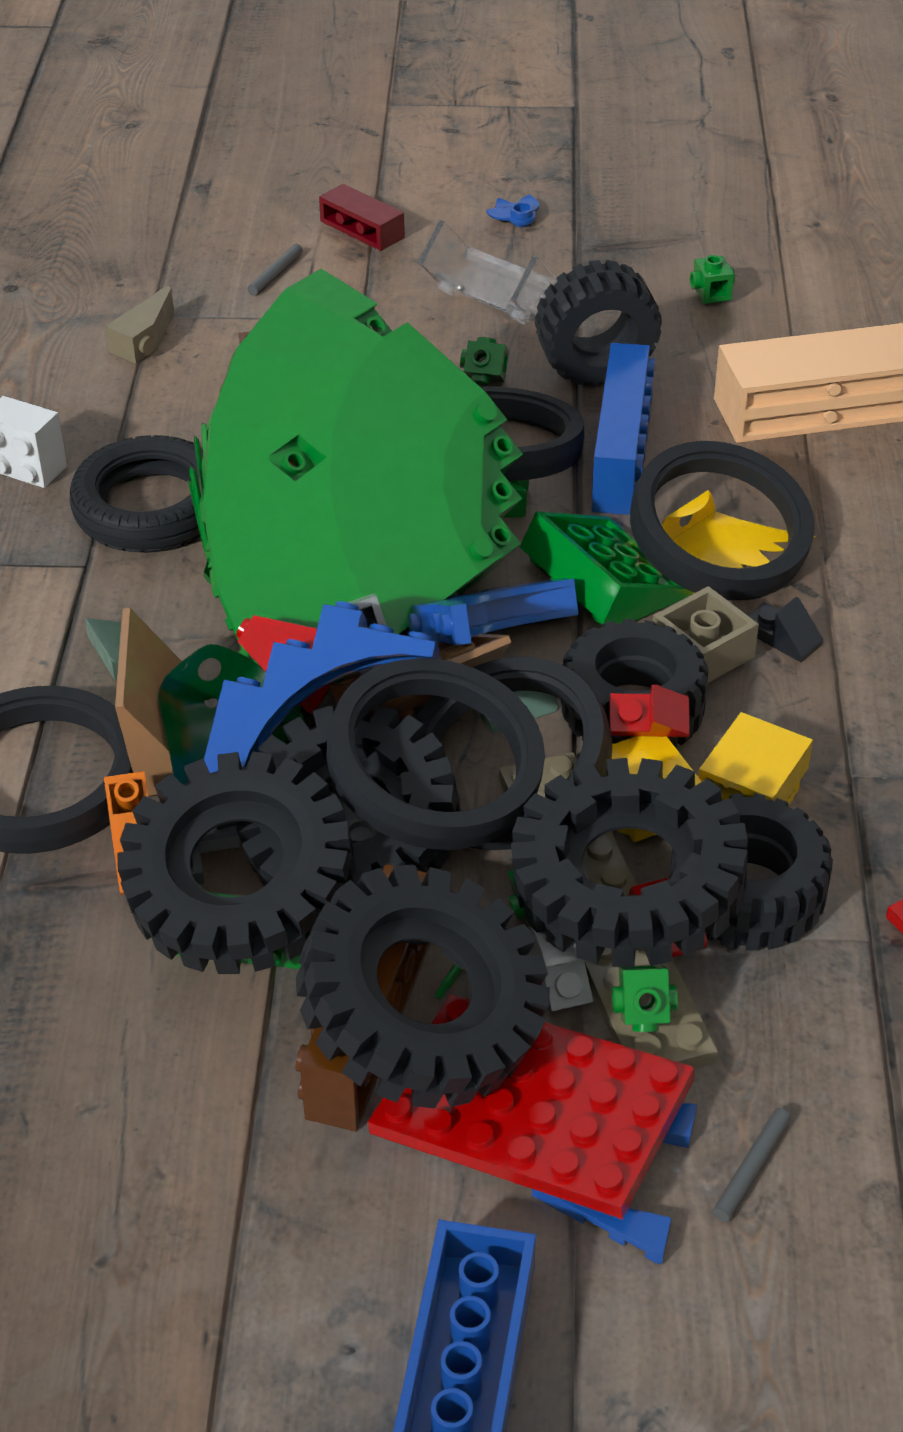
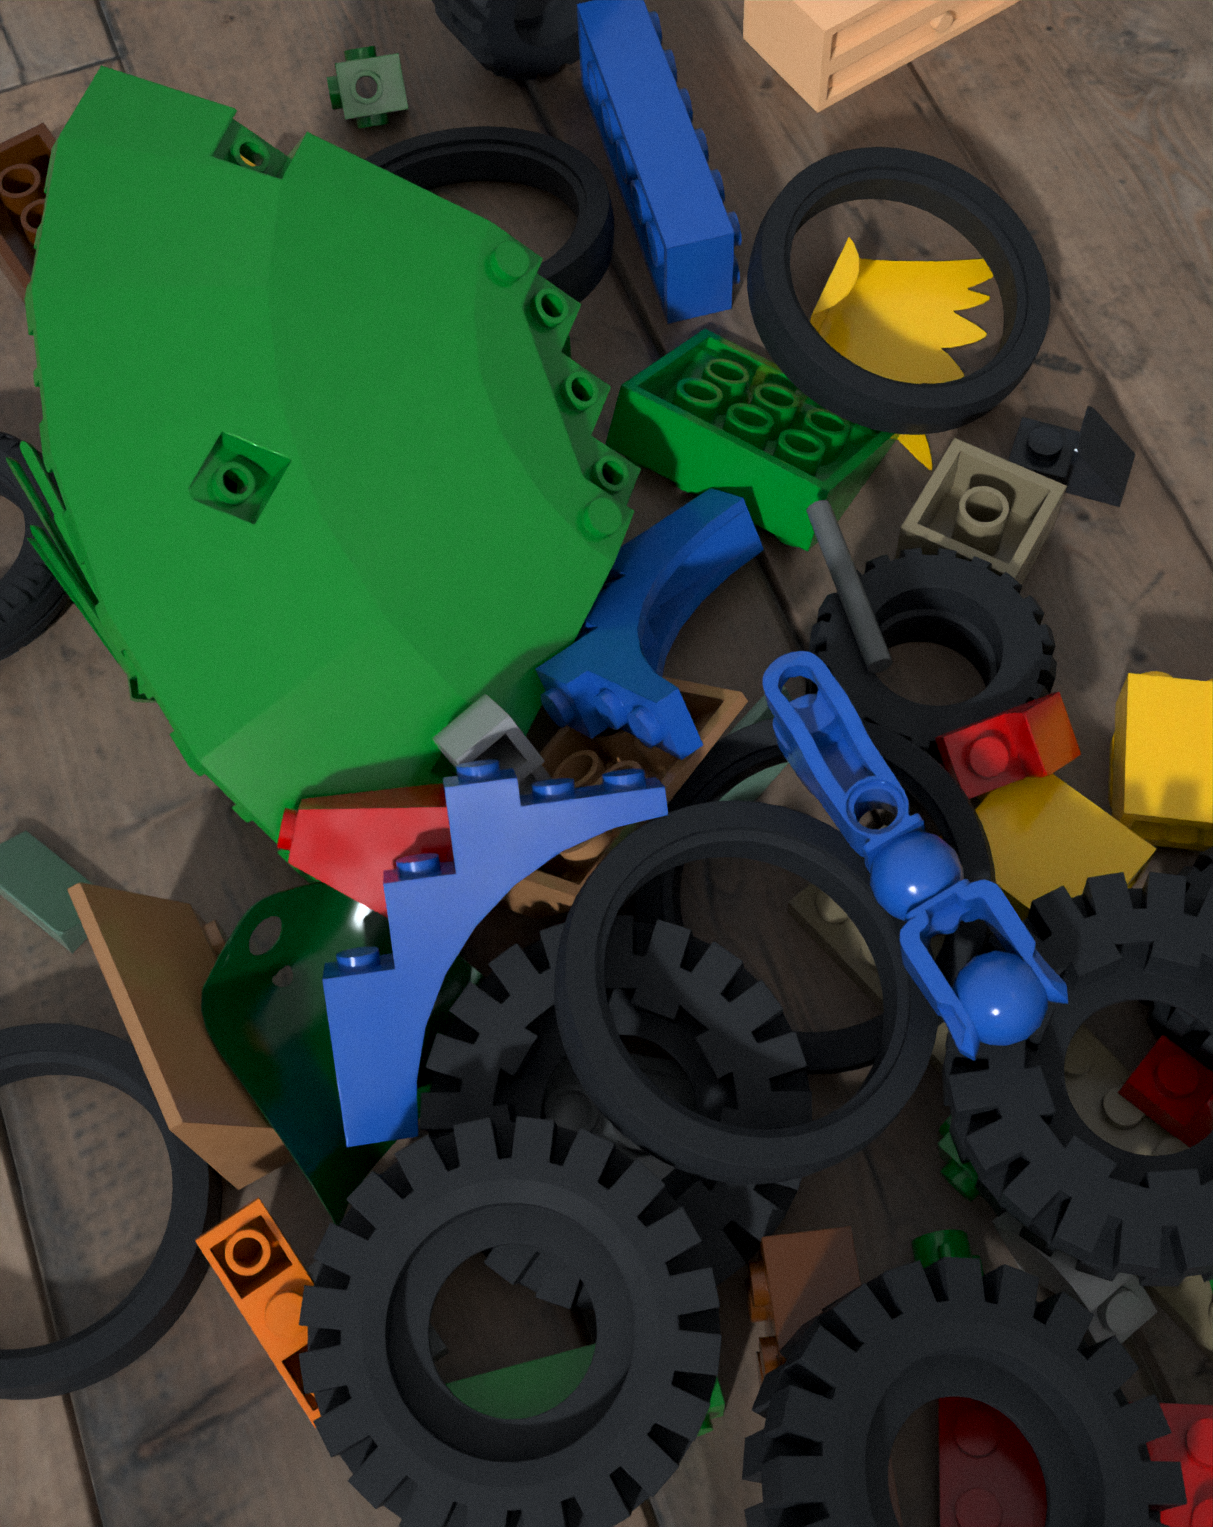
camera: 20 degrees left, 20 degrees up
(544, 718) = (912, 872): none -> blue piece
(602, 623) = (849, 587): none -> dark grey bar

